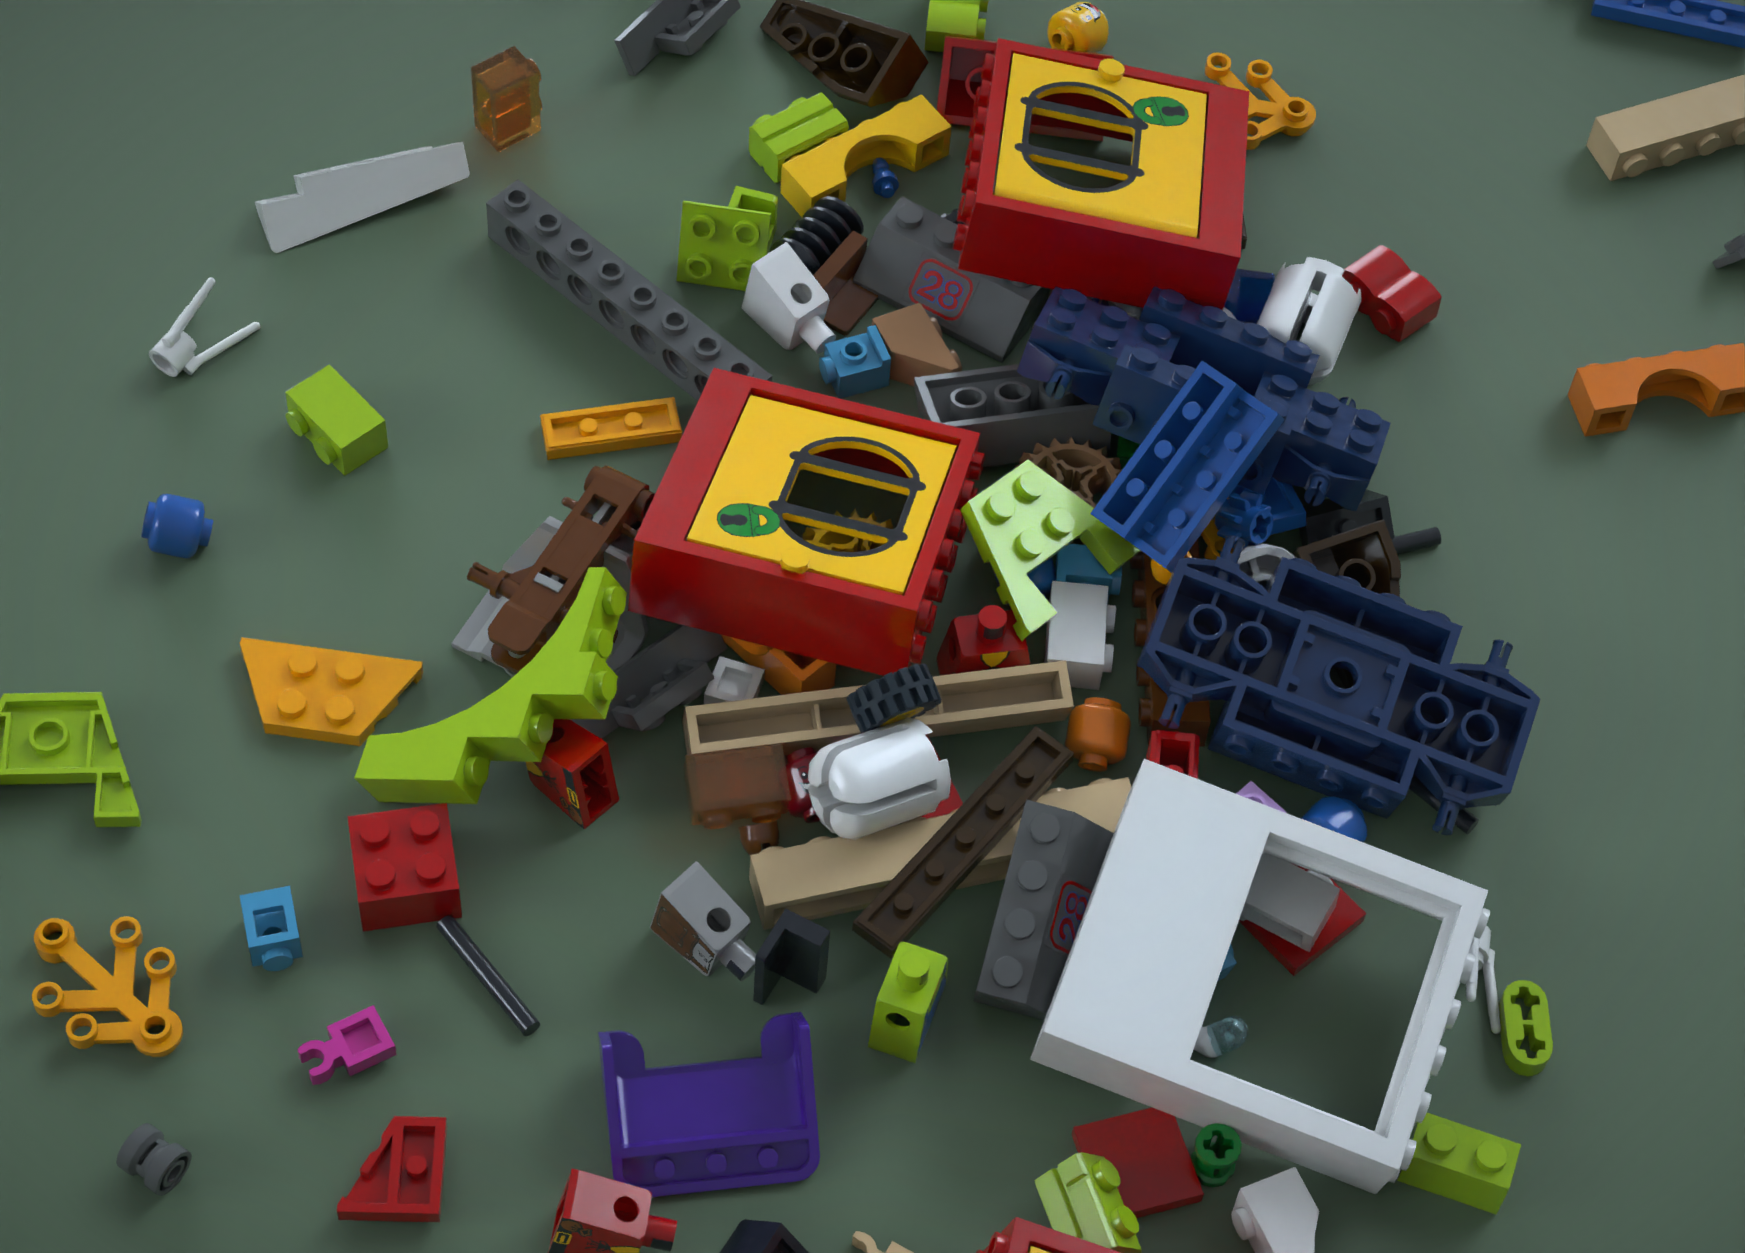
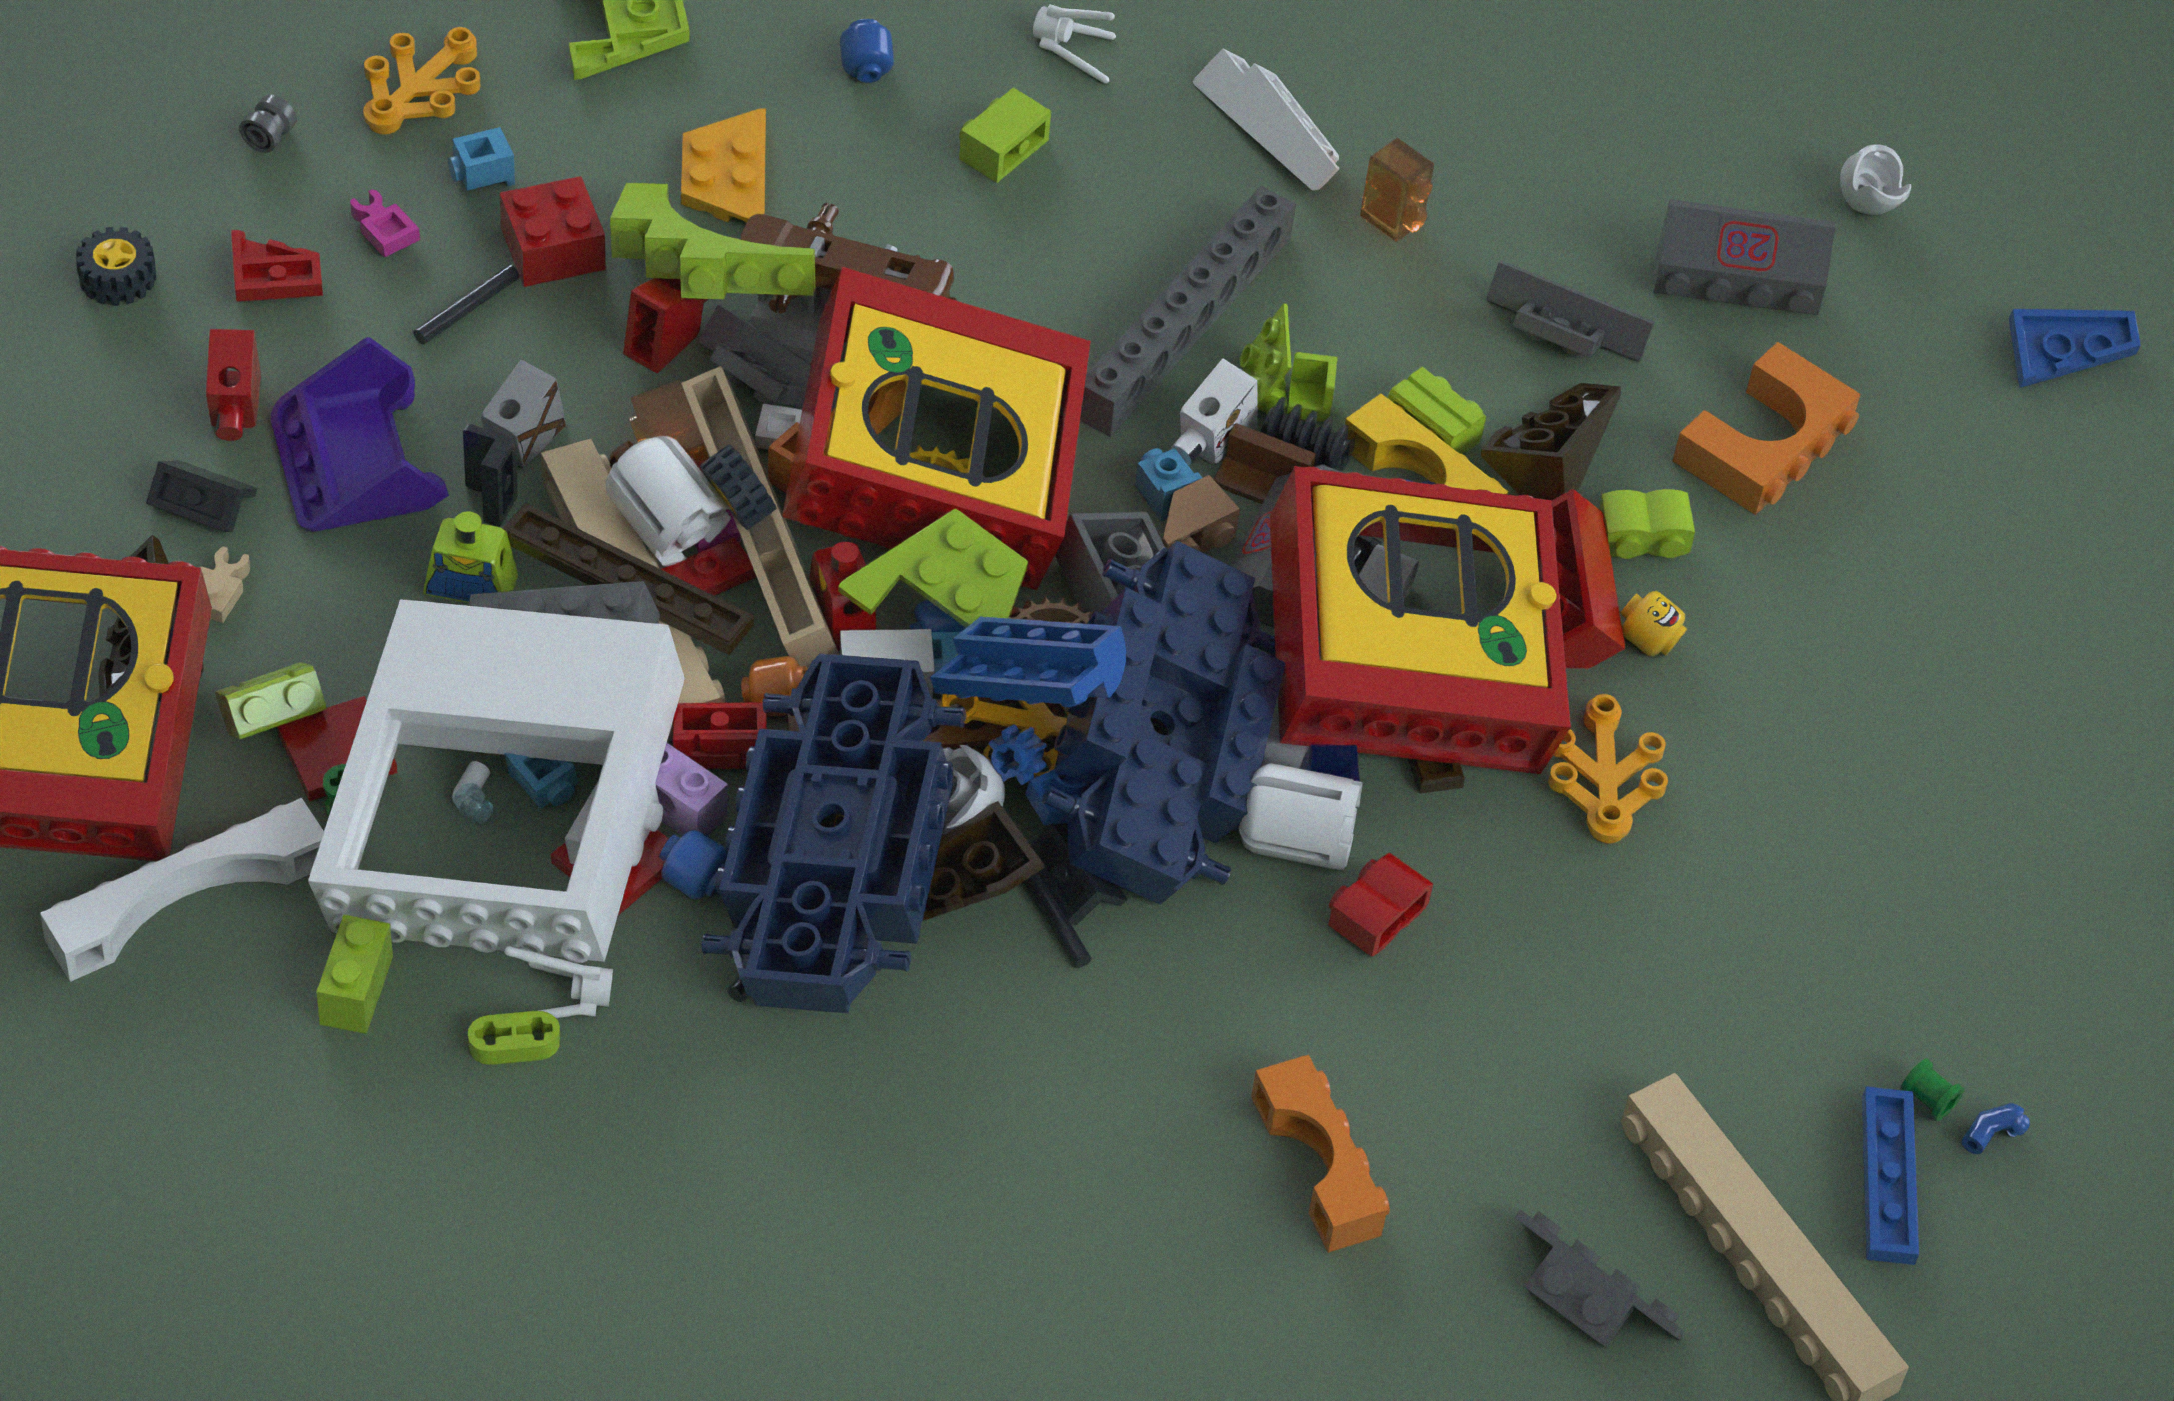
camera: 80 degrees right, 5 degrees down
(610, 428) = (1046, 305): light orange tile -> none

